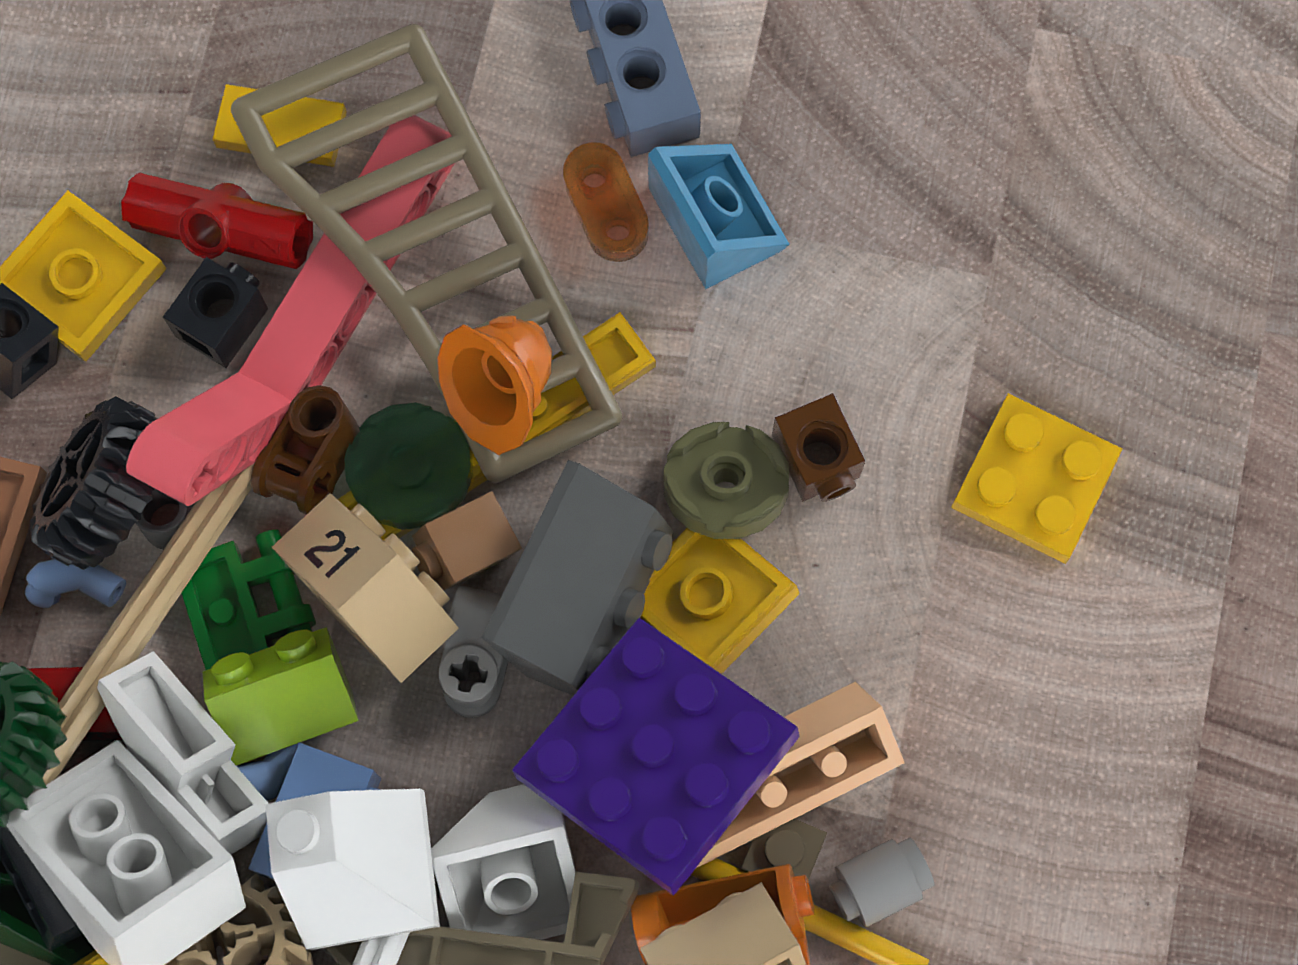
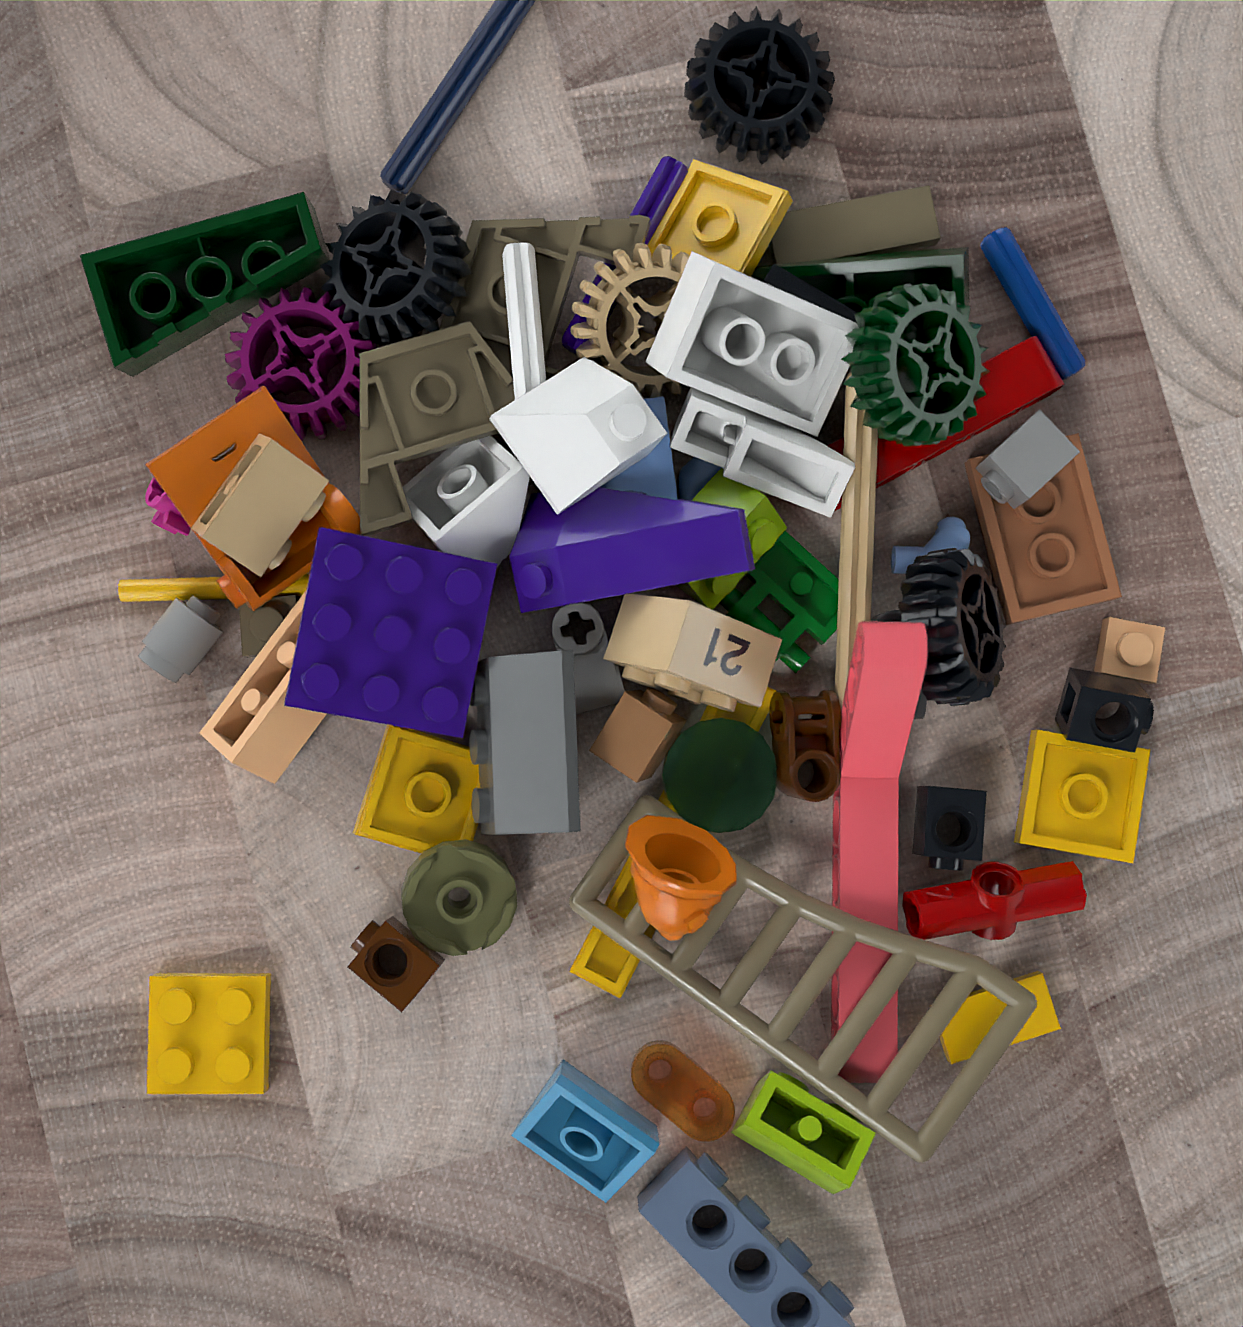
camera: 145 degrees right, 10 degrees up
(377, 721) = (623, 546): none -> dark purple wedge
(512, 107) = (804, 1132): none -> lime brick

